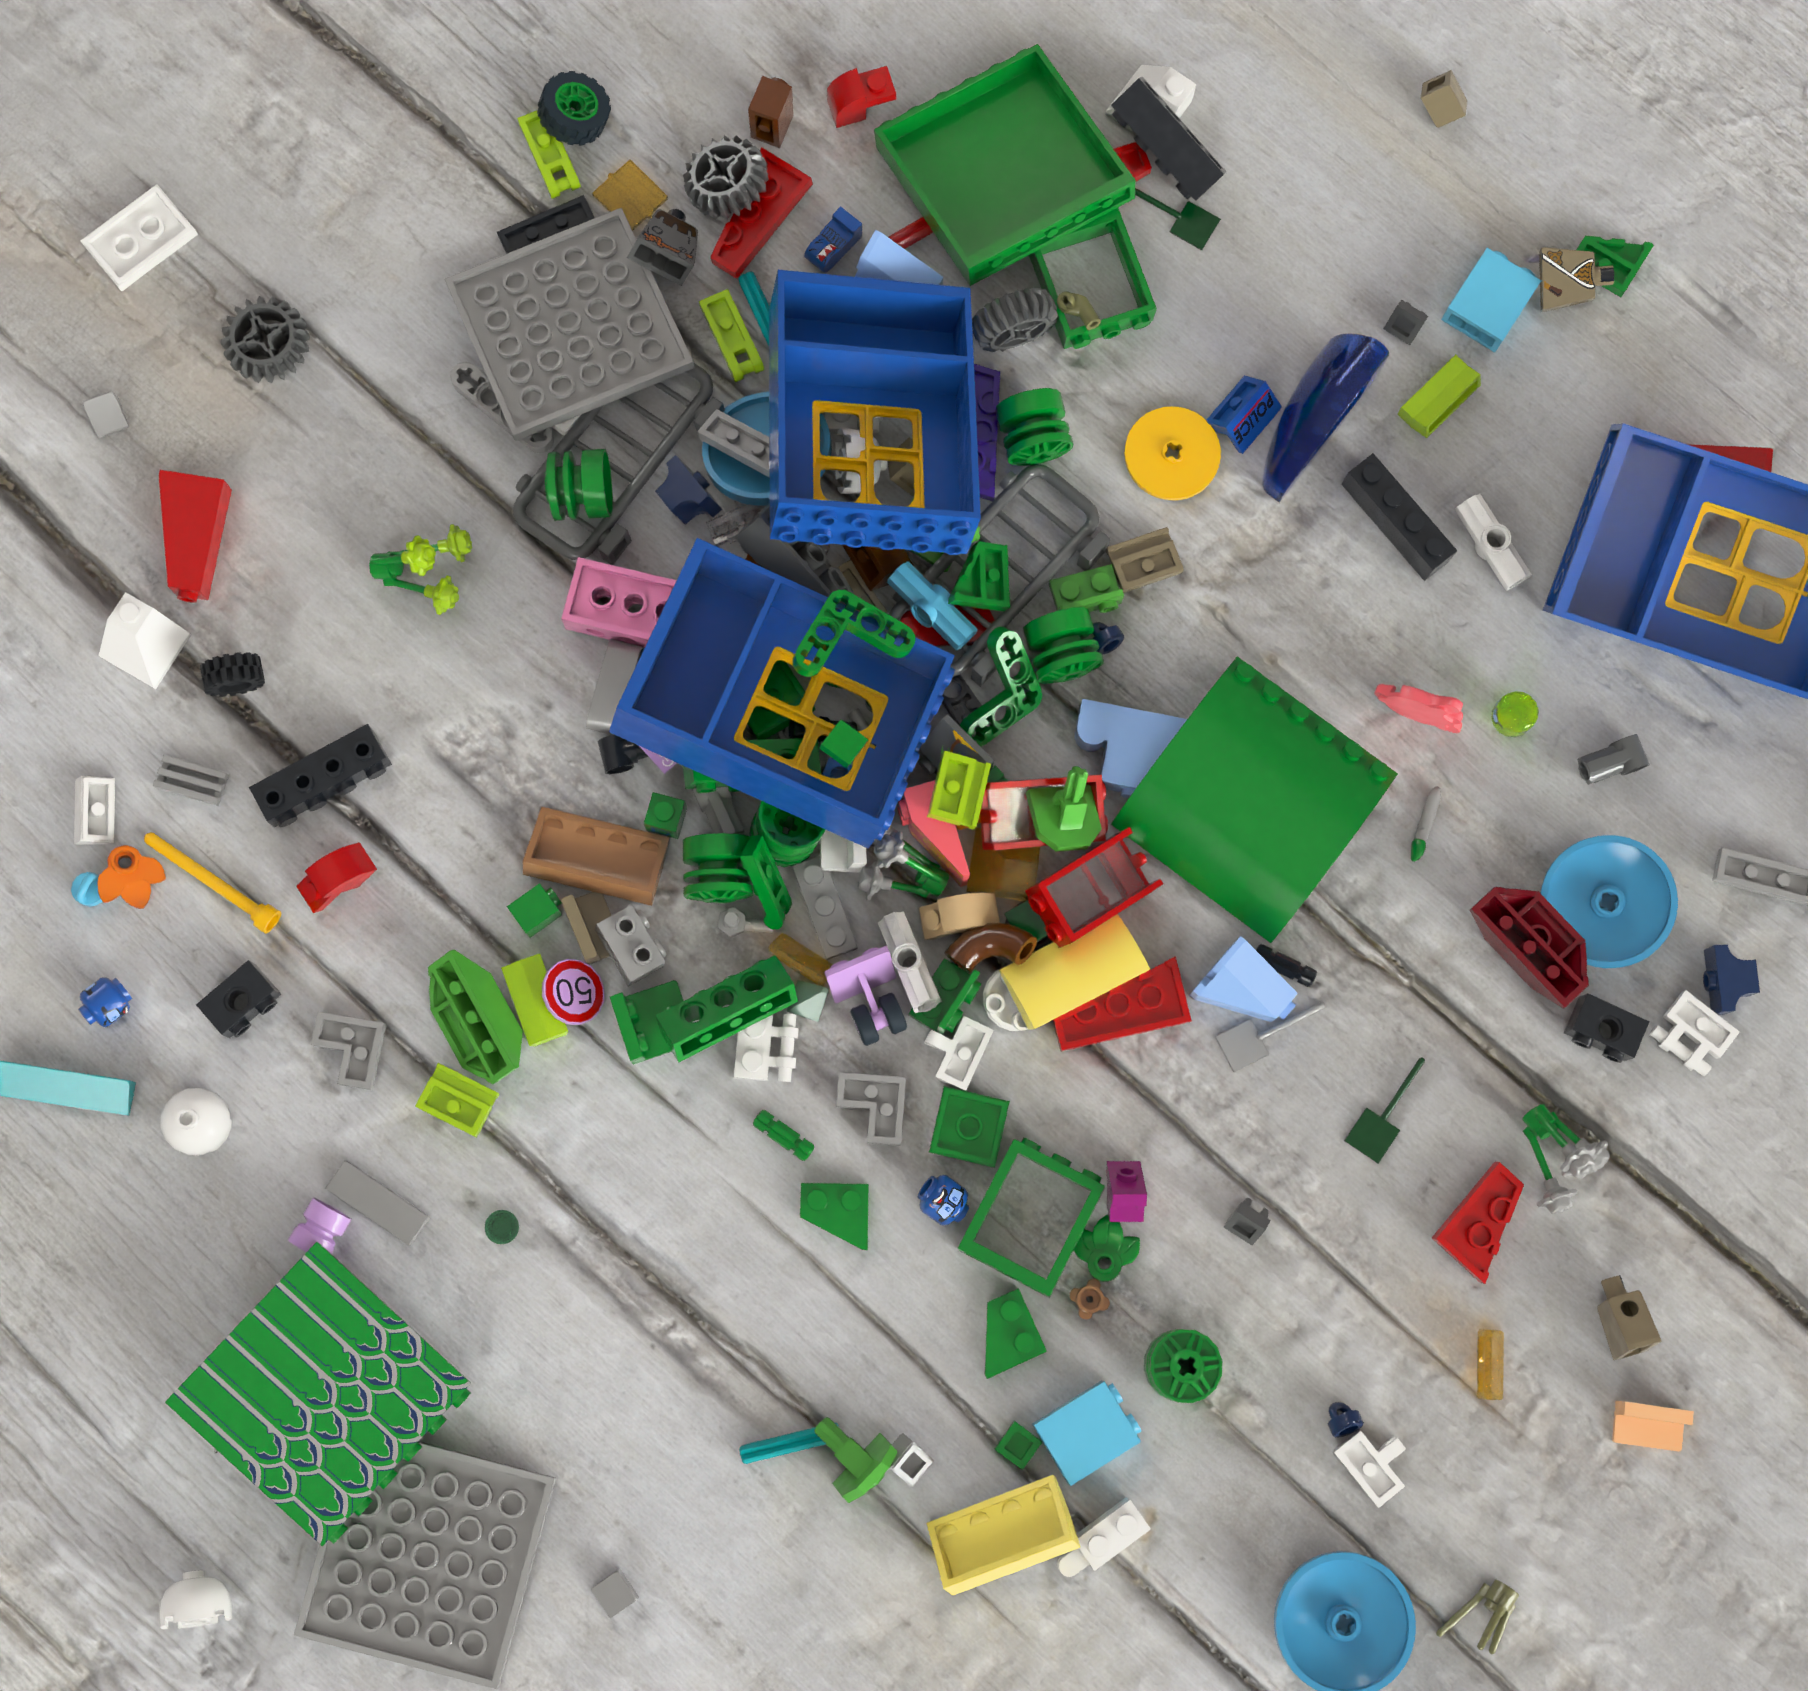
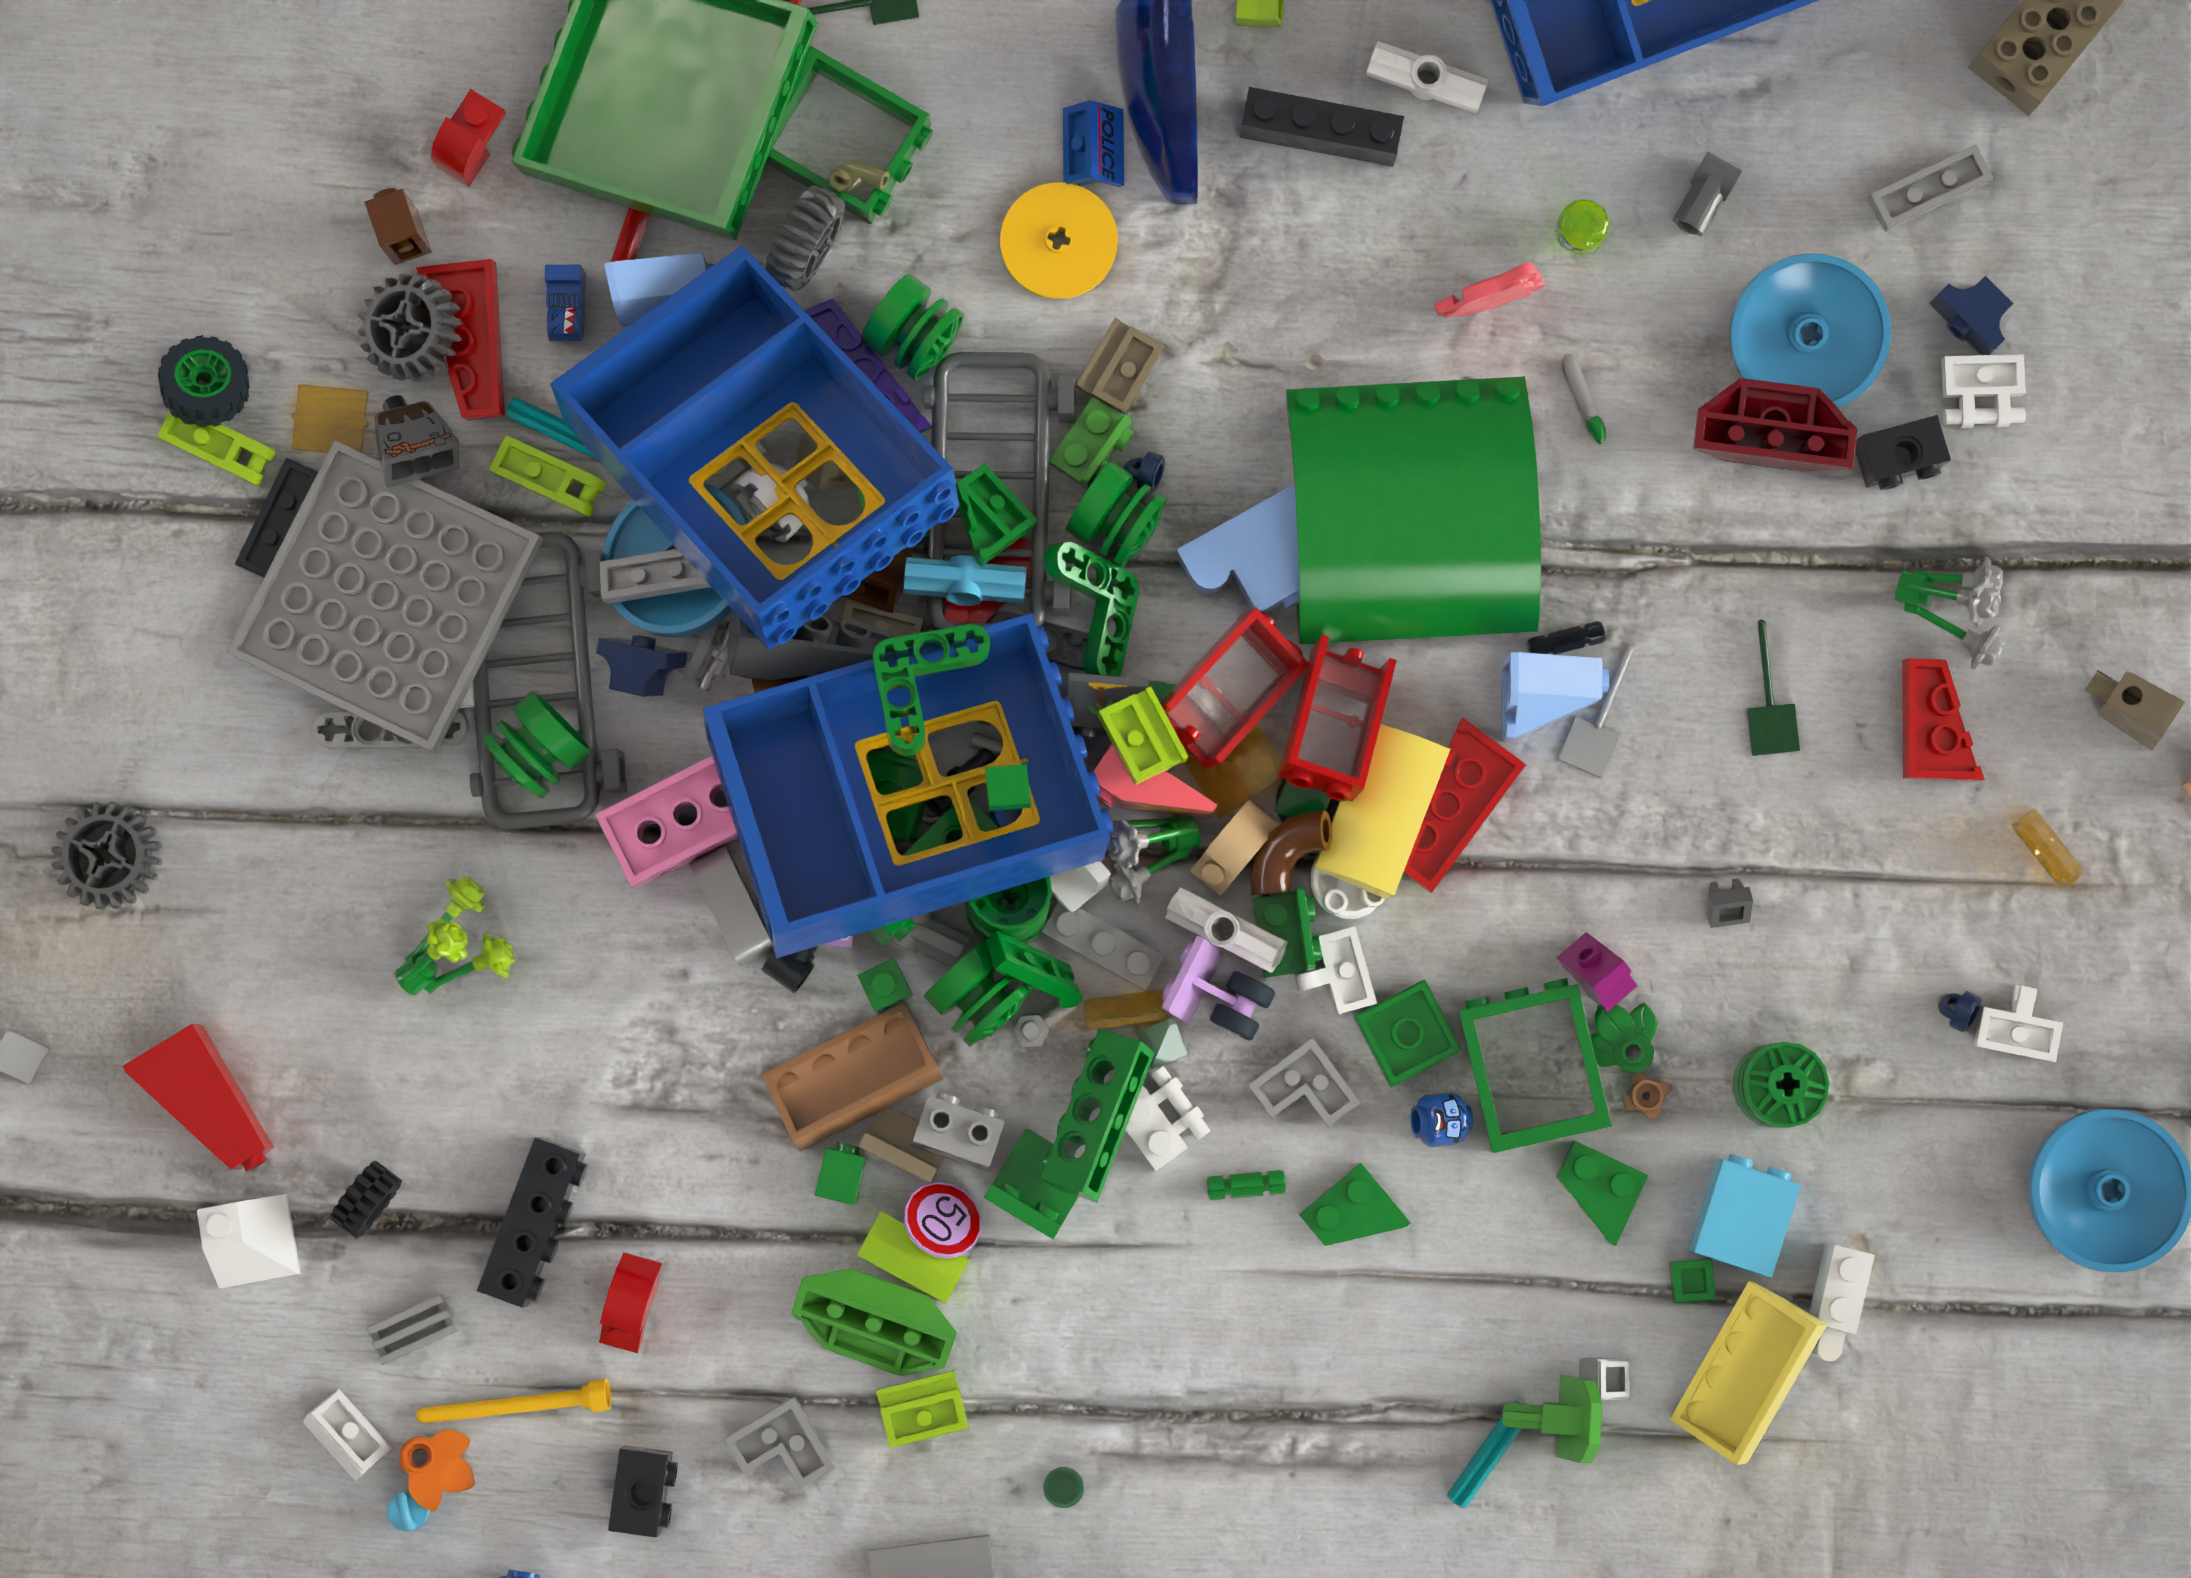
camera: 35 degrees left, 5 degrees up
(1065, 815) = (1254, 673): bright green piece -> none

